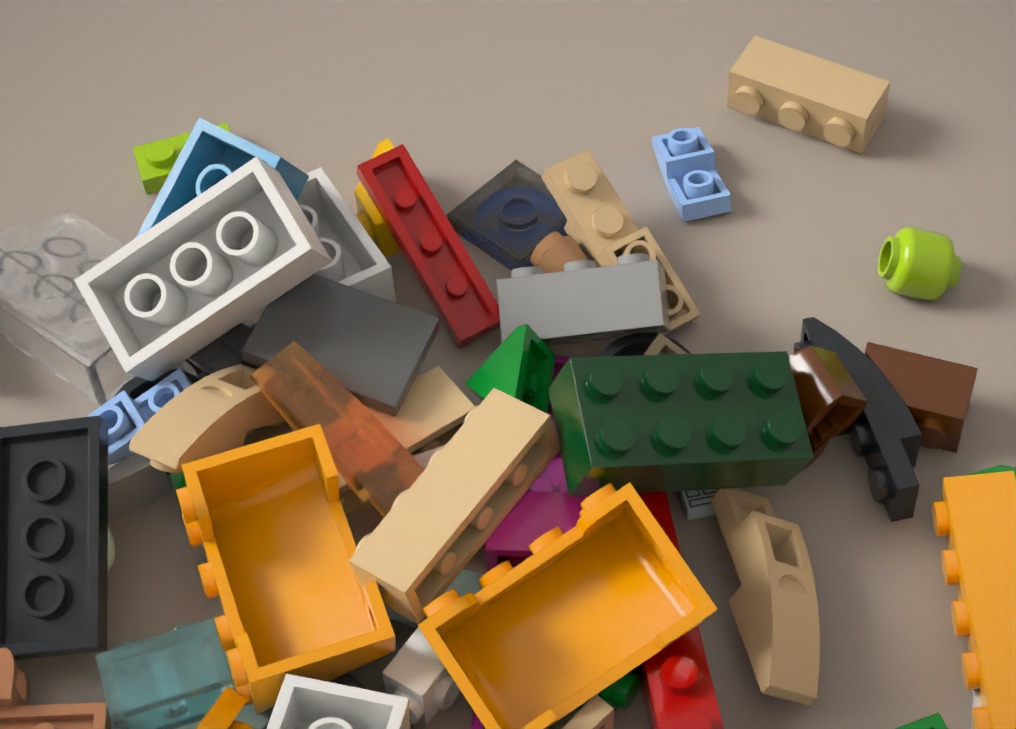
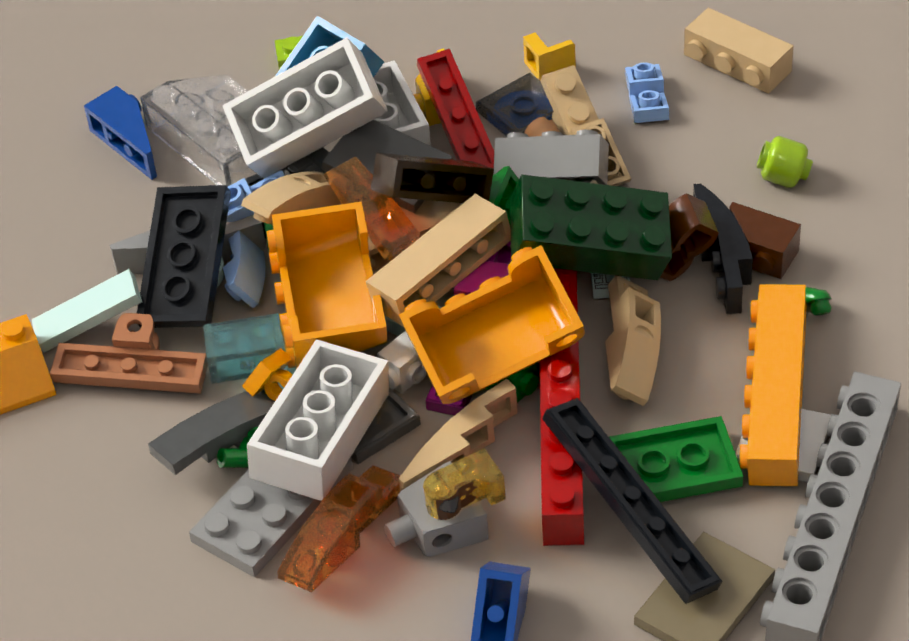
camera: 10 degrees right, 5 degrees down
(149, 544) = (245, 271): none -> light blue slope
(418, 367) = (430, 178): none -> dark brown brick
(540, 137) = (546, 59): none -> yellow panel

